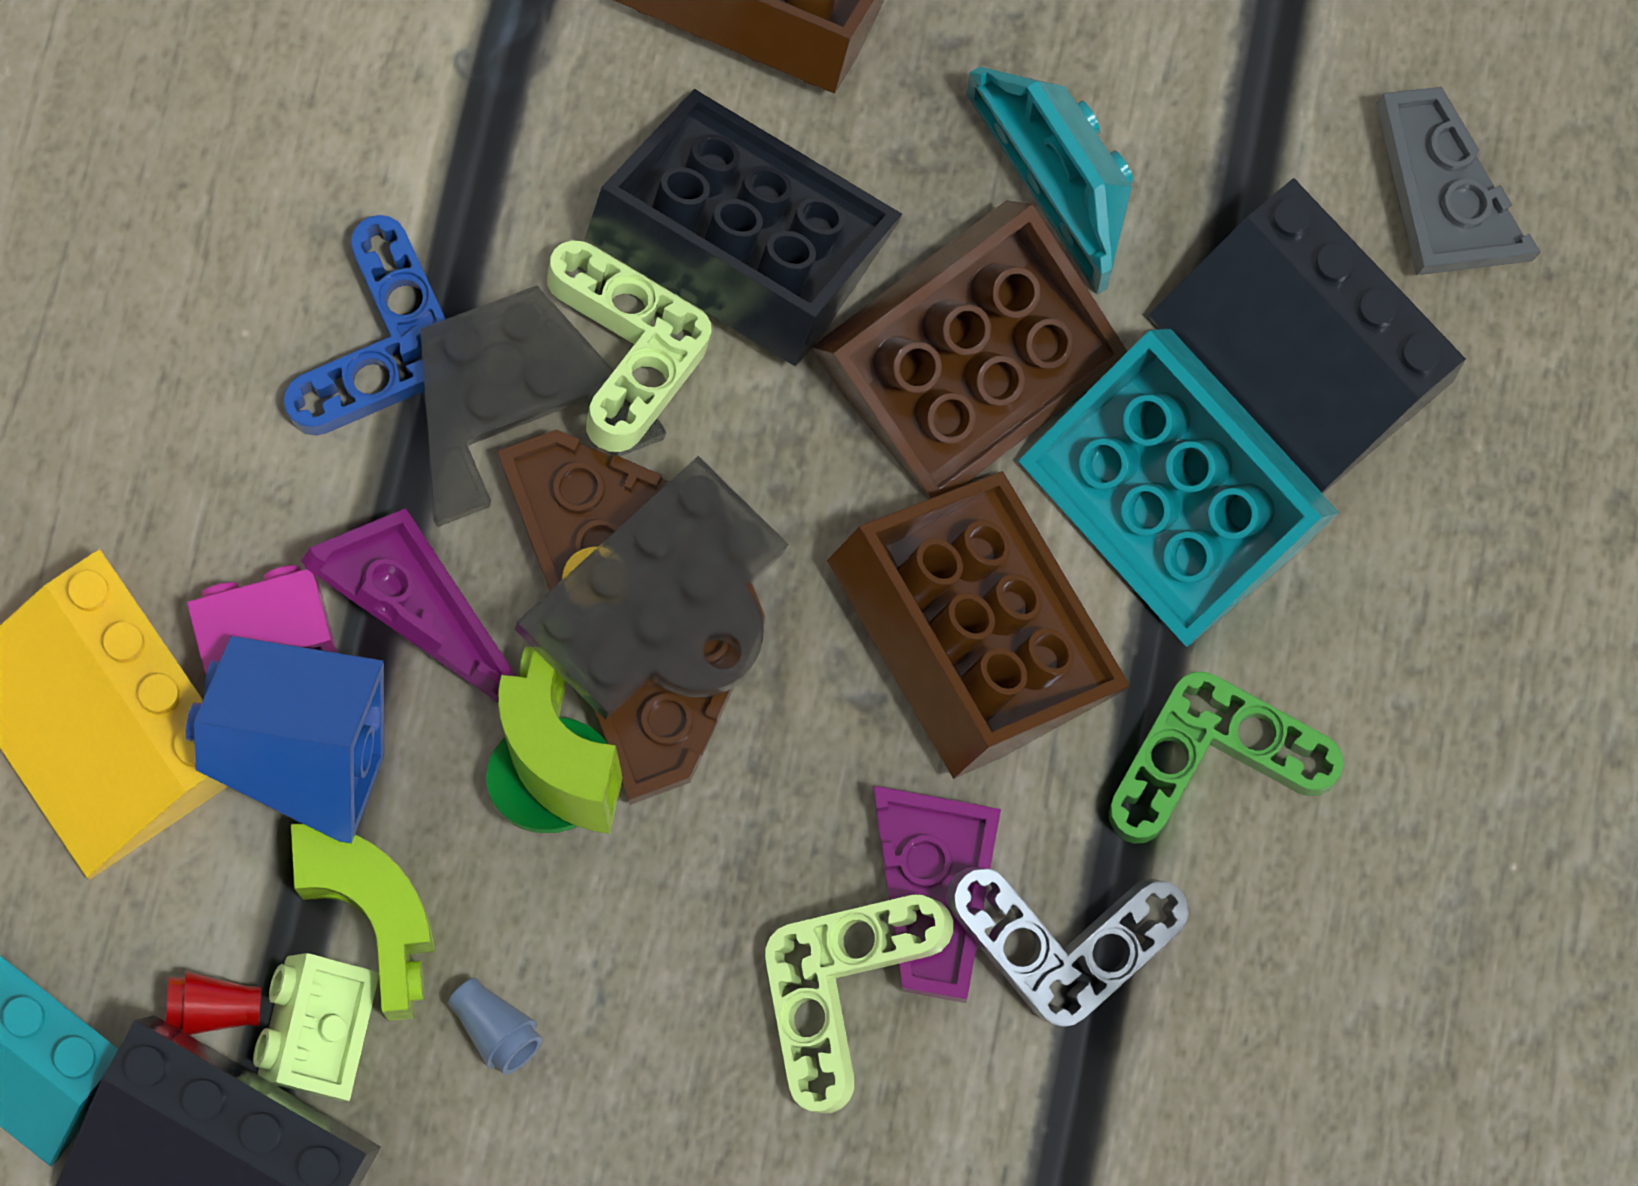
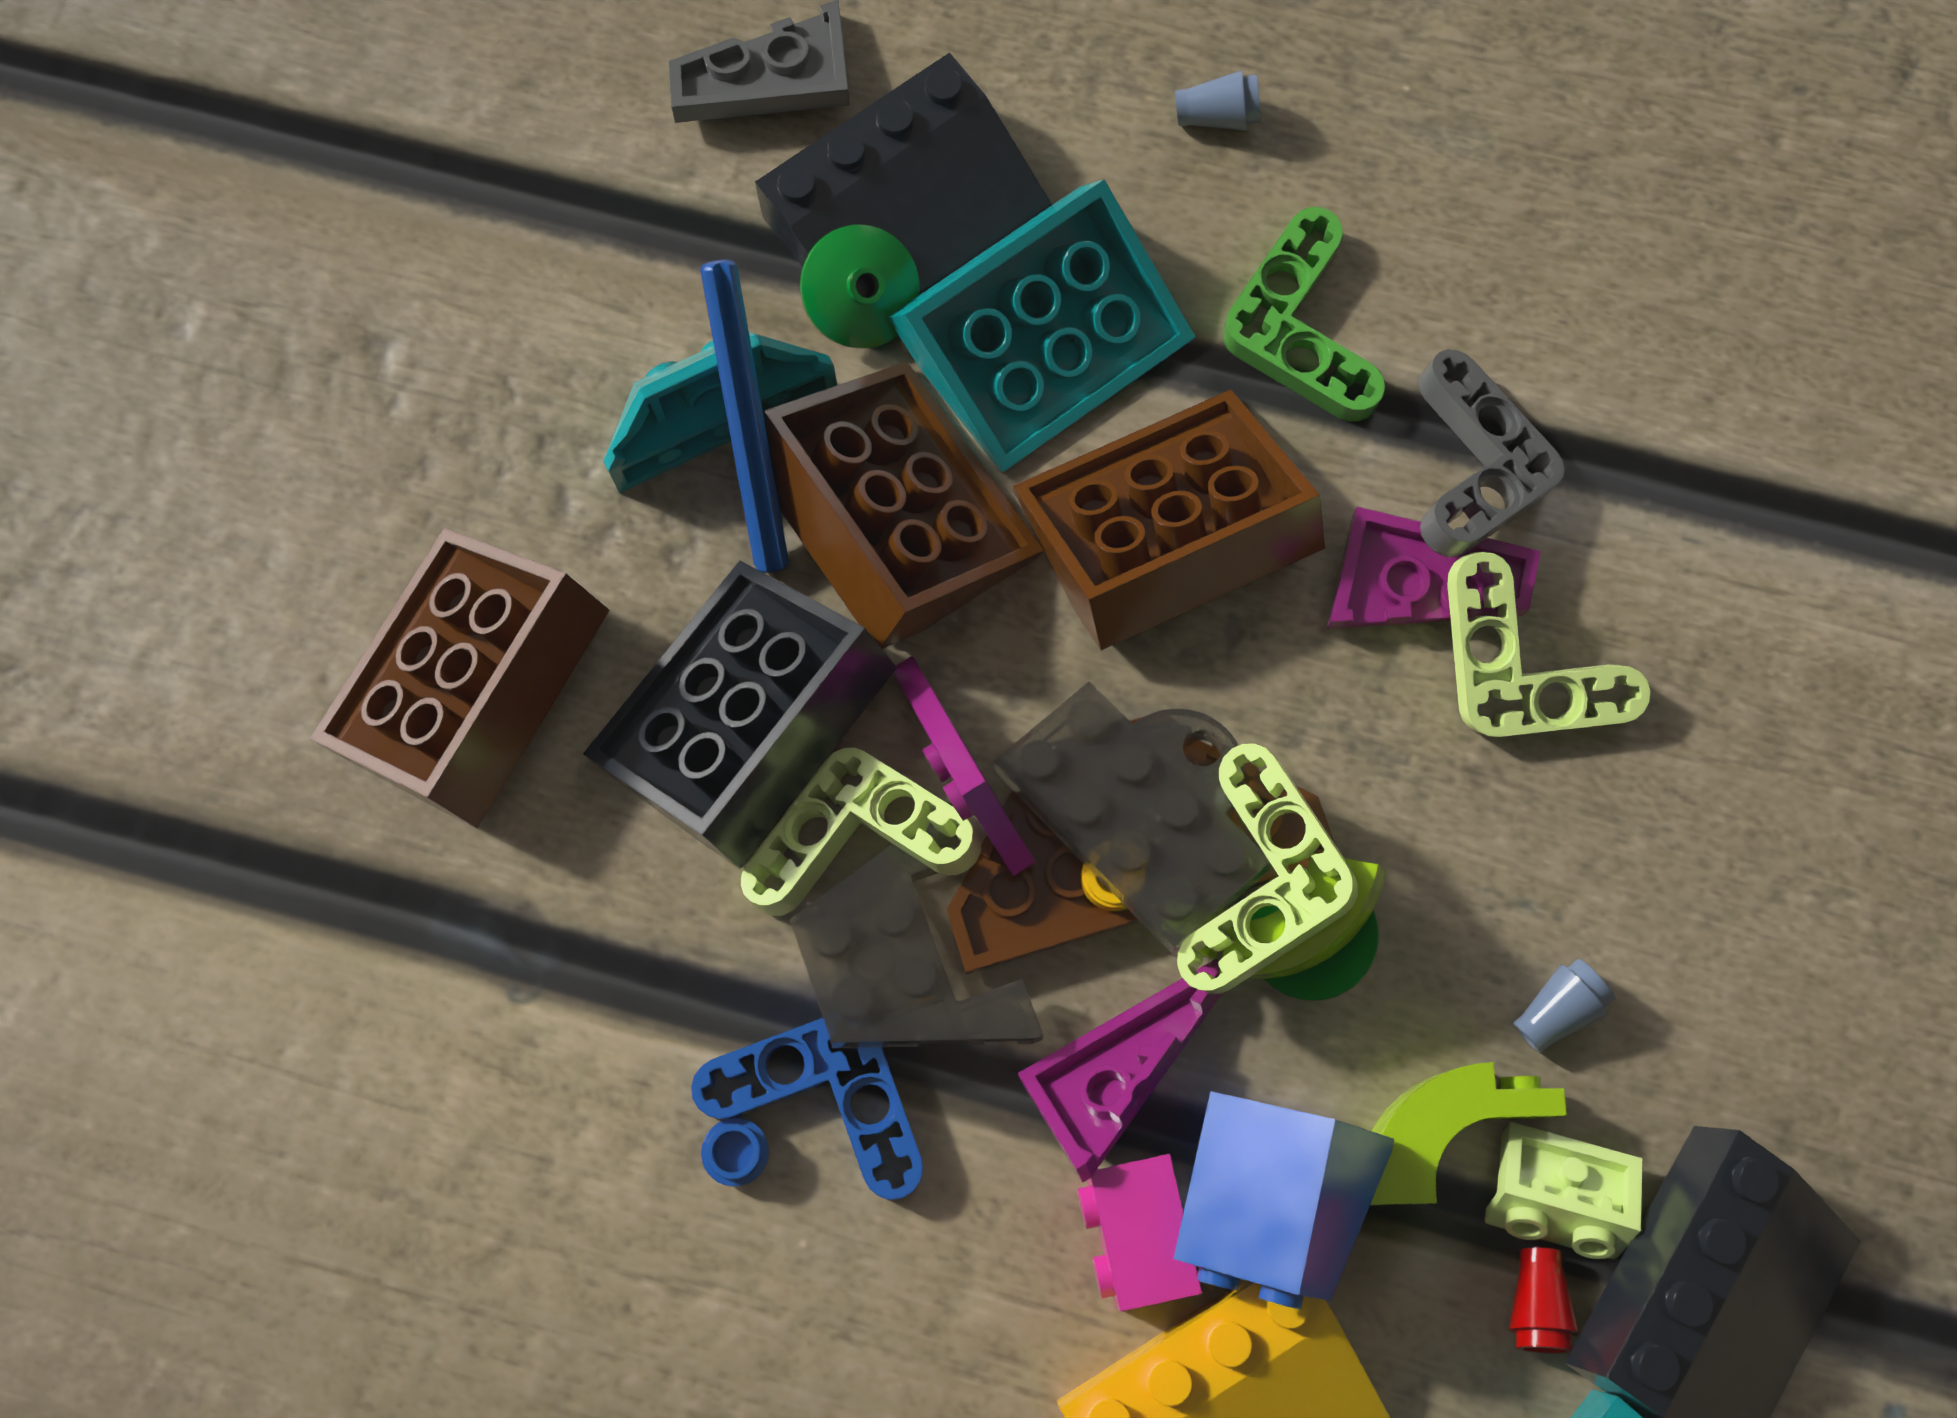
camera: 85 degrees left, 0 degrees up
(323, 262) = (735, 1152): none -> blue plate
(580, 724) = (1286, 892): none -> yellowish green beam
(685, 426) = (952, 759): none -> magenta wing
(1023, 185) = (744, 414): none -> blue axle
(1227, 287) = (831, 278): none -> green dish
(1460, 660) = (1220, 103): none -> sand blue cone

